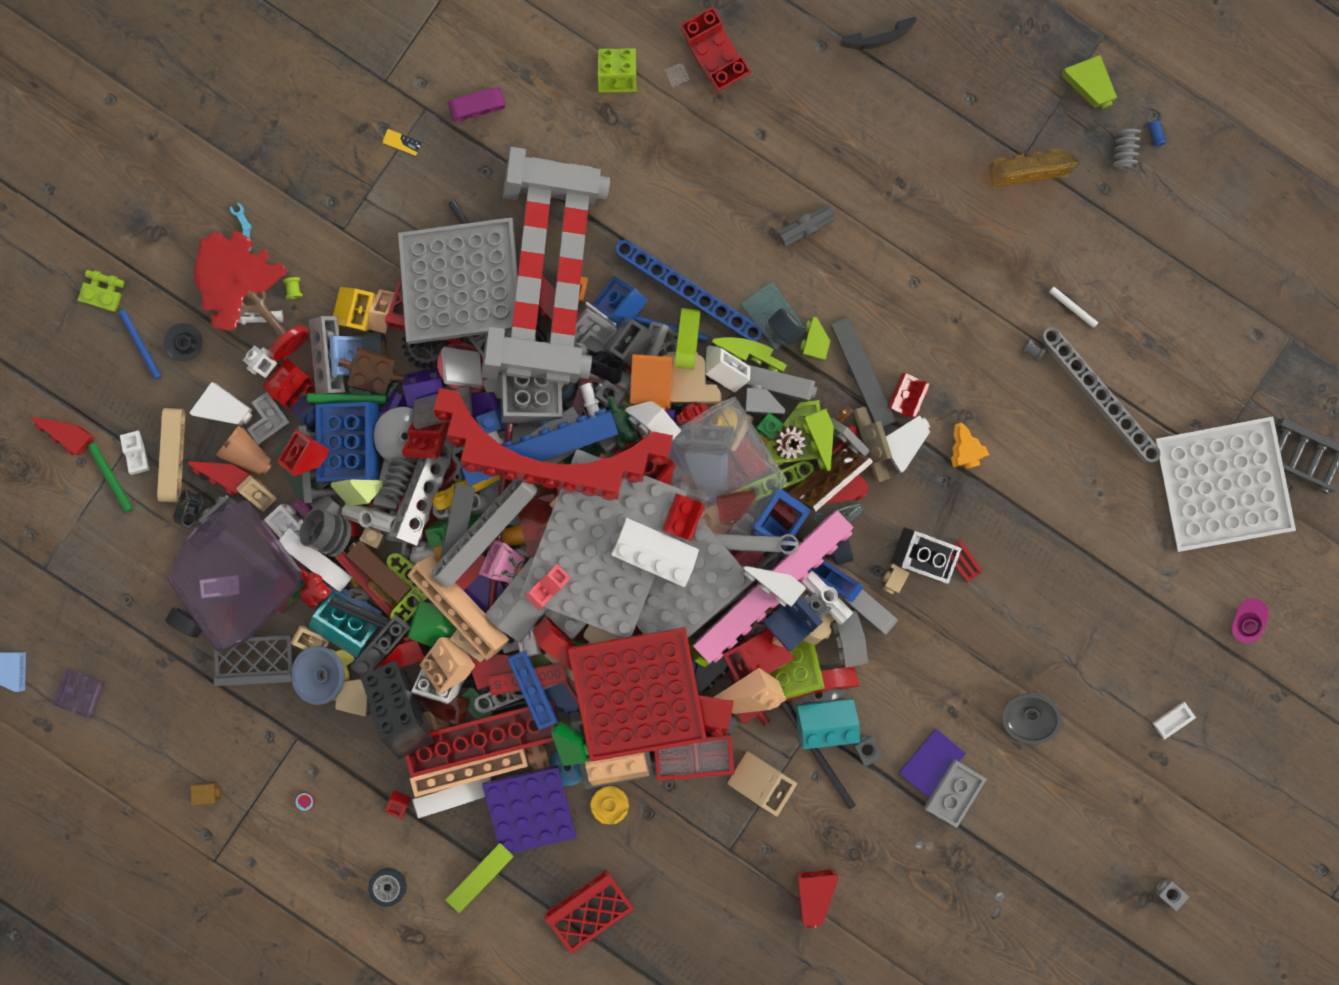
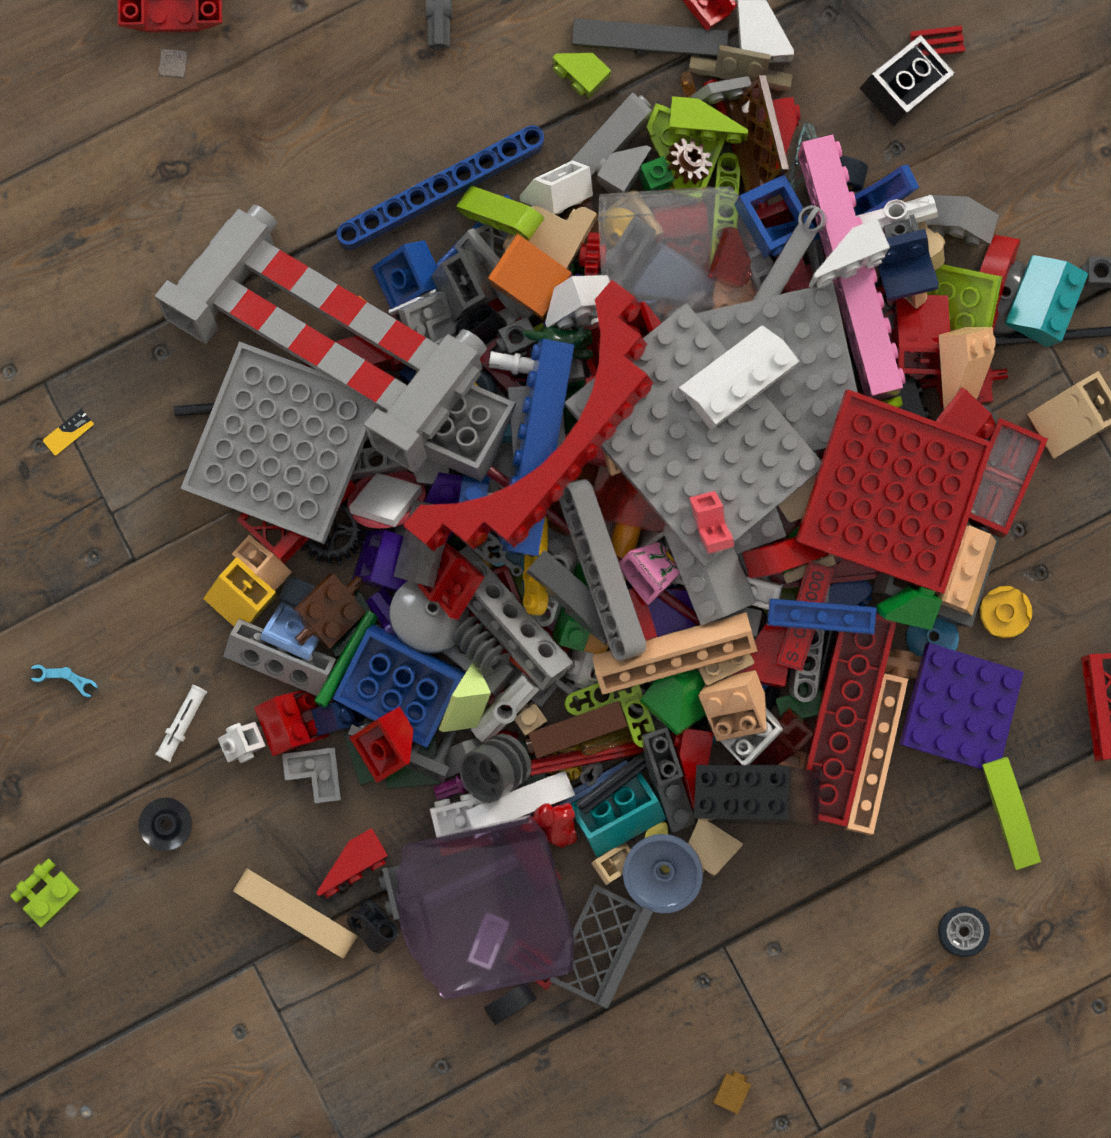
camera: 65 degrees left, 5 degrees down
(71, 436) = (201, 1024): red slope -> none
(109, 477) = (280, 1005): green piece -> none
(135, 452) = (266, 958): white slope -> none
(139, 344) = (133, 881): blue bar -> none
(221, 406) = (270, 819): white slope -> none
(229, 274) = (116, 724): red plant -> none
(244, 452) = (341, 820): nougat cone -> none
(256, 493) = (399, 832): tan slope -> none
(292, 288) = (173, 656): lime bush -> none
(304, 801) = (806, 977): tile -> none
(397, 804) = (870, 866): red slope -> none
(449, 798) = (895, 796): white slope -> none
(476, 104) = (74, 317): magenta beam -> none
(617, 70) = (128, 129): lime bracket -> none
(683, 517) = (714, 322): red bracket -> none
(743, 348) = (547, 155): lime slope -> none
(763, 306) = (524, 103): clear light blue tile -> none
(786, 326) = (547, 94): black wheel -> none
(873, 612) = (943, 176): light grey beam -> none
(895, 579) = (915, 131): tan brick -> none

